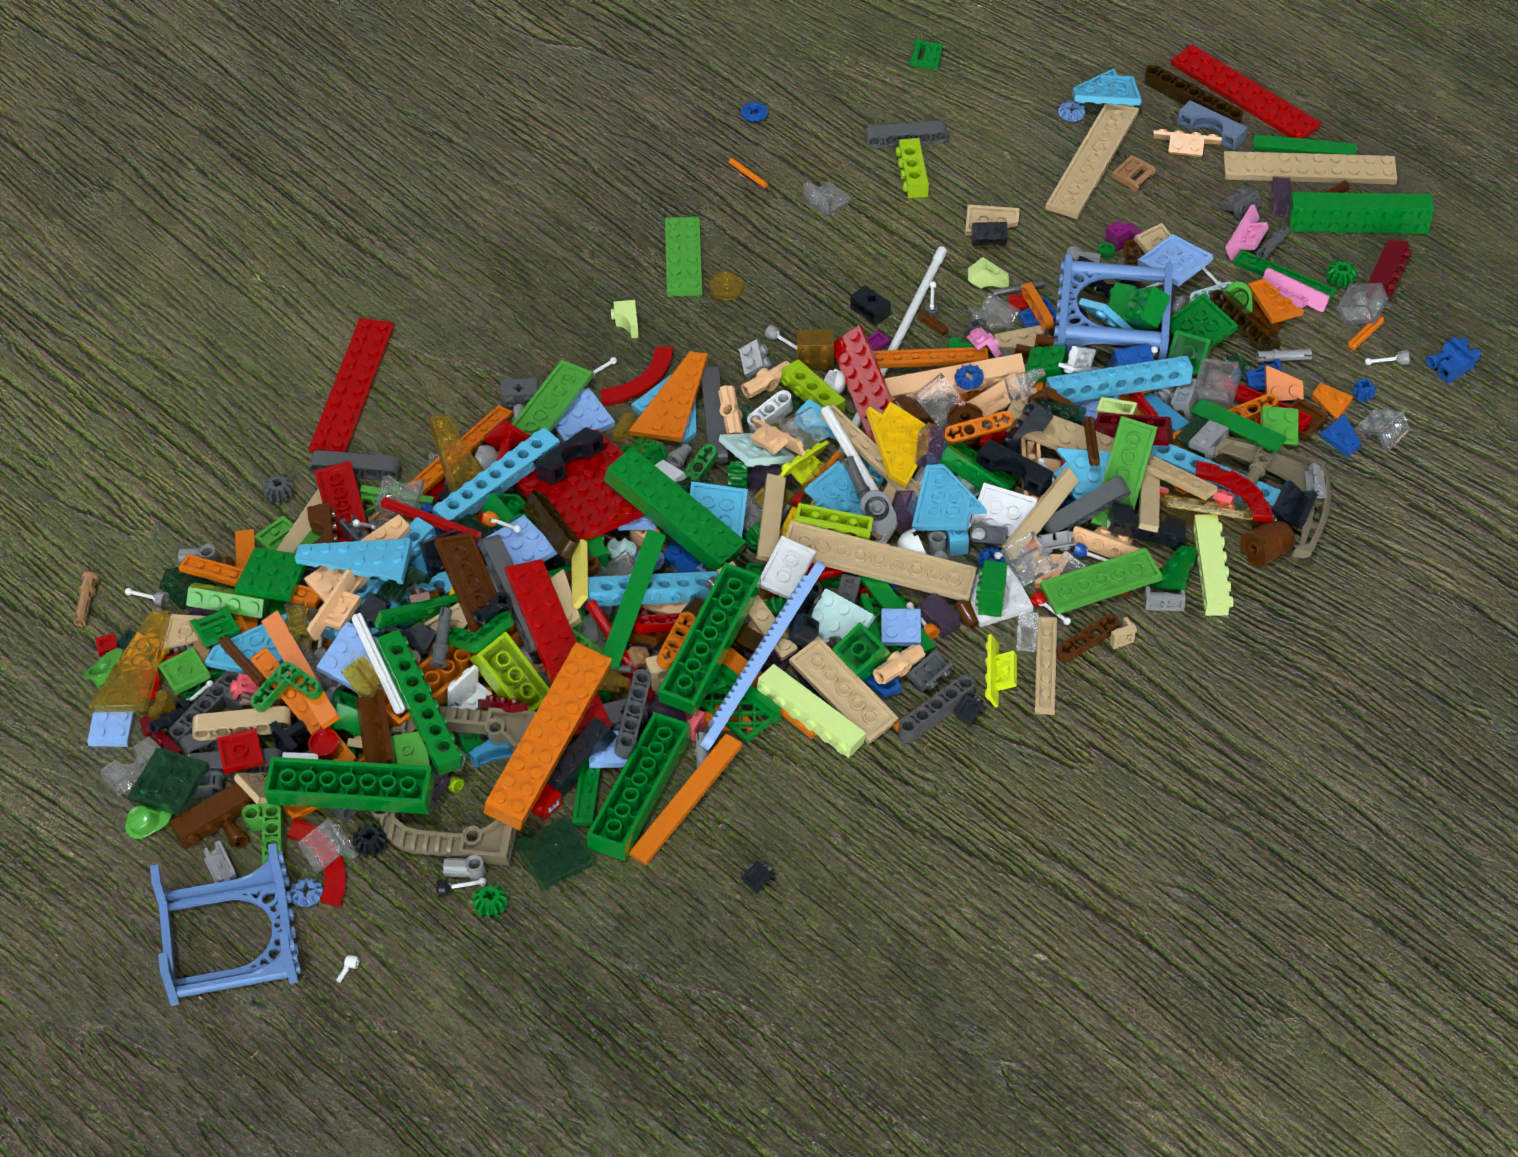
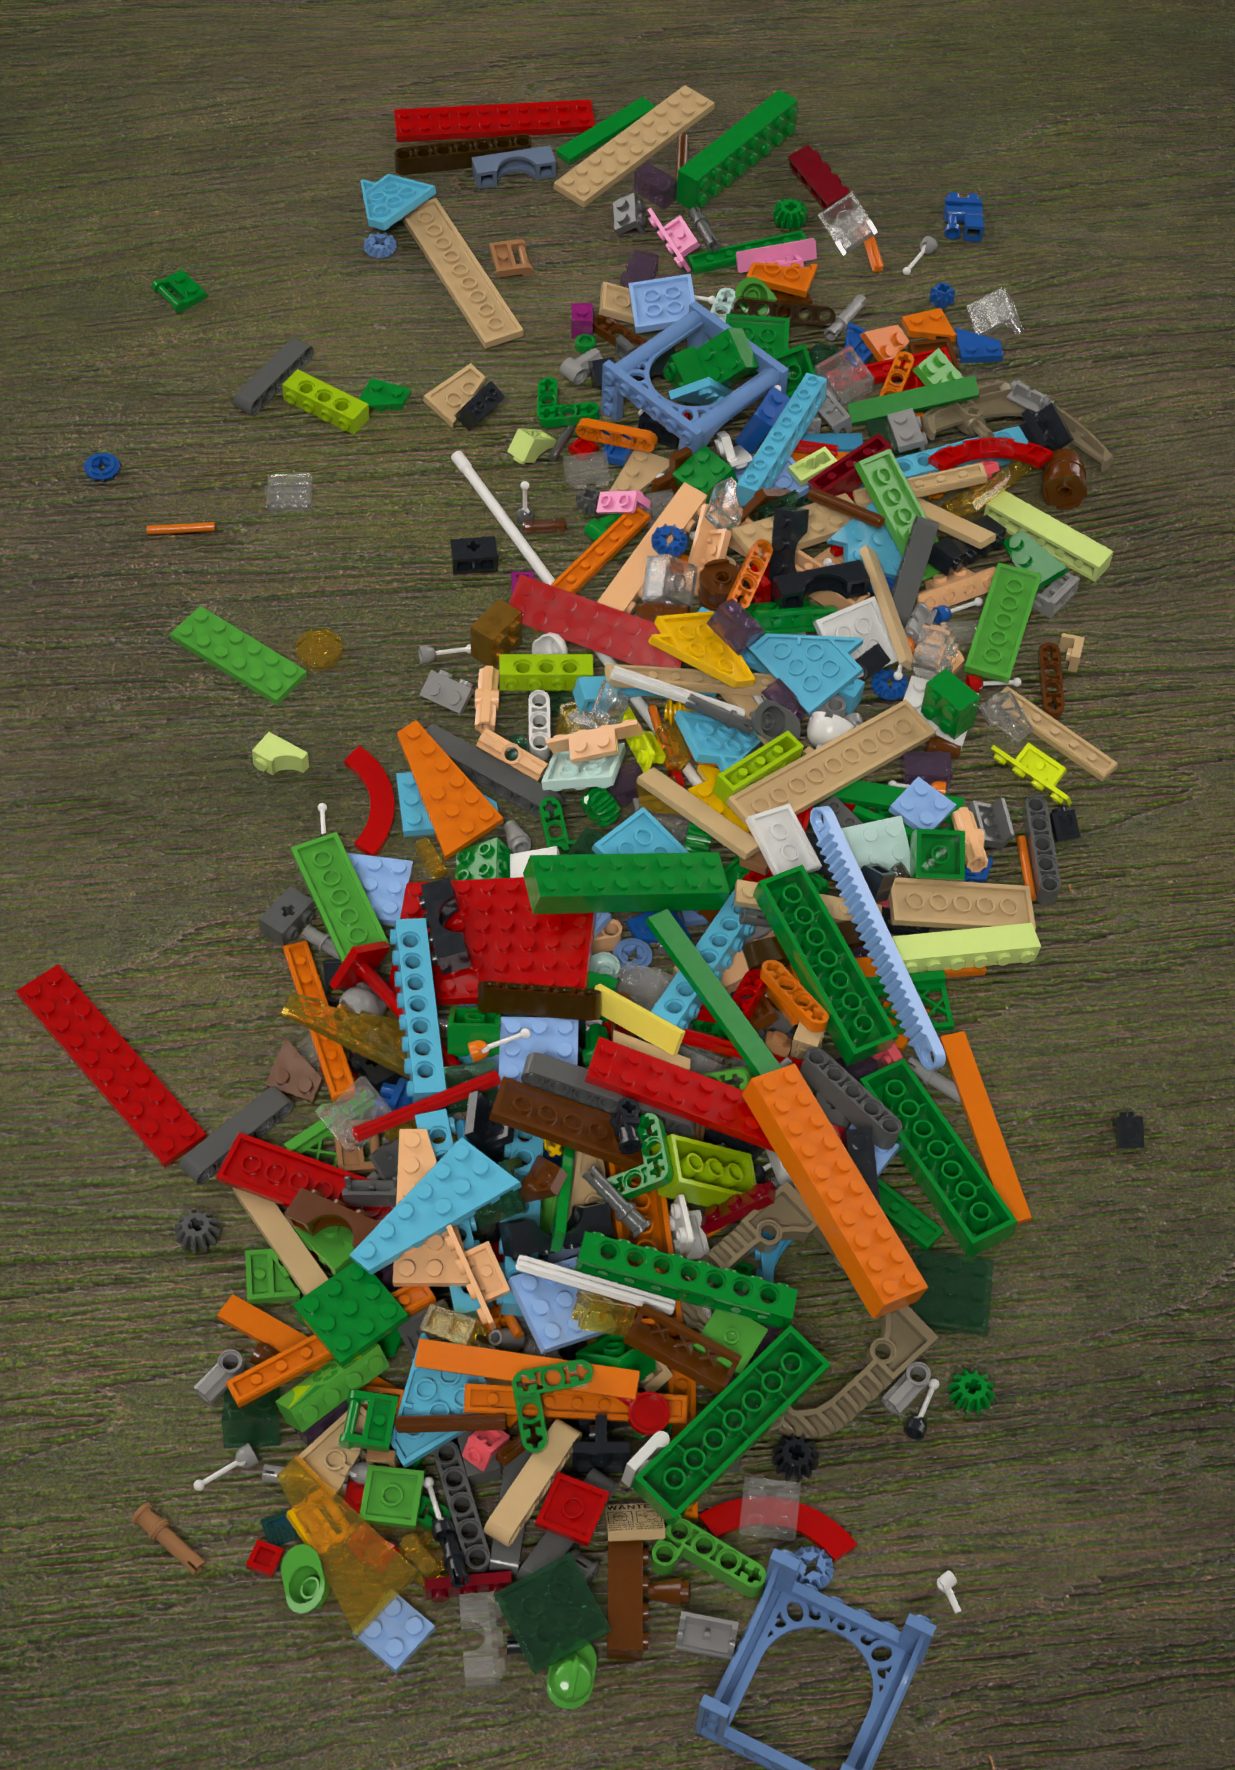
camera: 55 degrees left, 5 degrees up
(372, 525) = (358, 1167): white hinge -> none
(416, 461) = (294, 1075): none -> reddish brown wing
(950, 190) = (385, 395): none -> green wing
(1026, 269) = (553, 409): none -> green beam
(1186, 144) = (516, 200): light nougat bracket -> none
(1199, 234) = (640, 267): none -> clear purple brick

